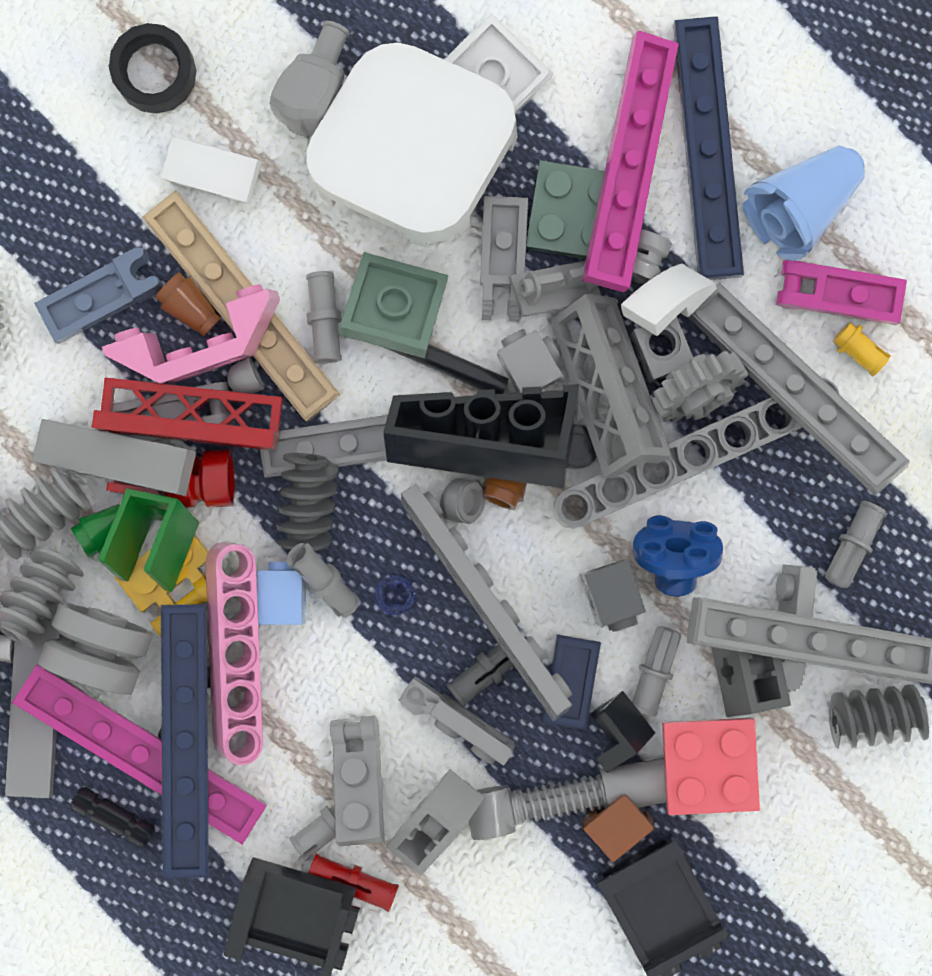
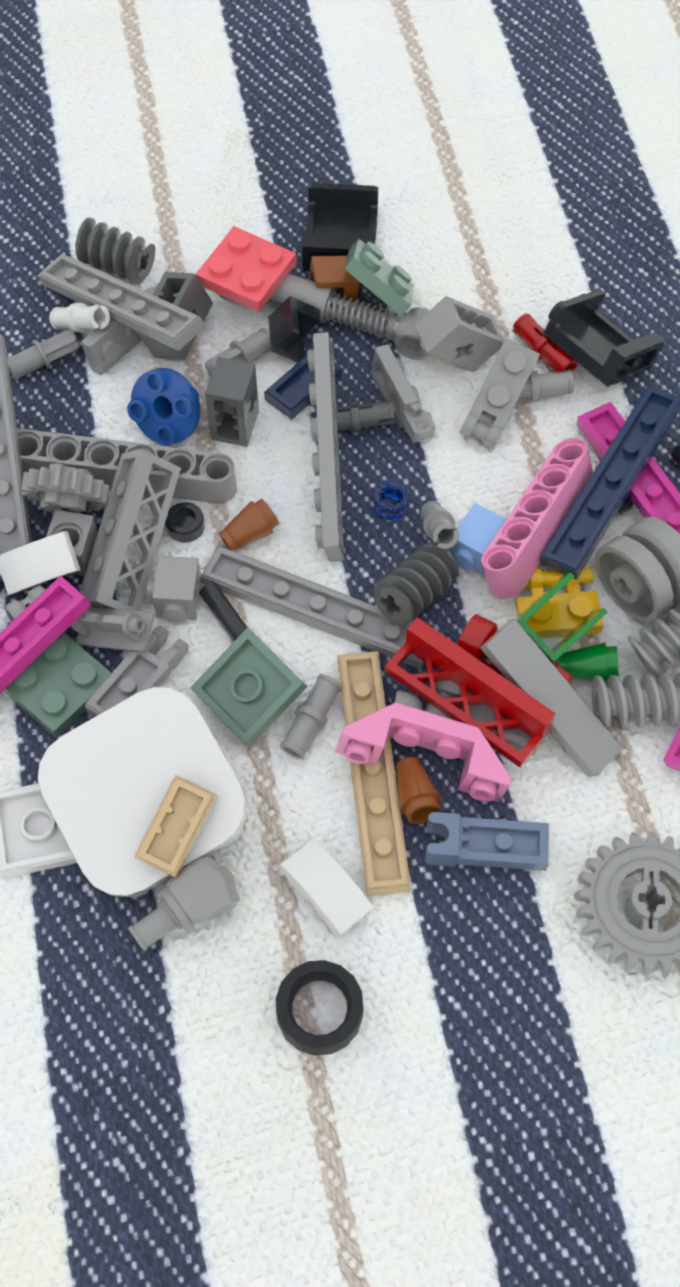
camera: 150 degrees left, 25 degrees down
(353, 118) = (176, 826): none -> tan plate
(462, 501) = (294, 527): light grey tile -> none
(486, 434) = (232, 534): black wedge -> none
(564, 845) = (388, 283): none -> sand green plate
(843, 601) = (79, 317): none -> white pin

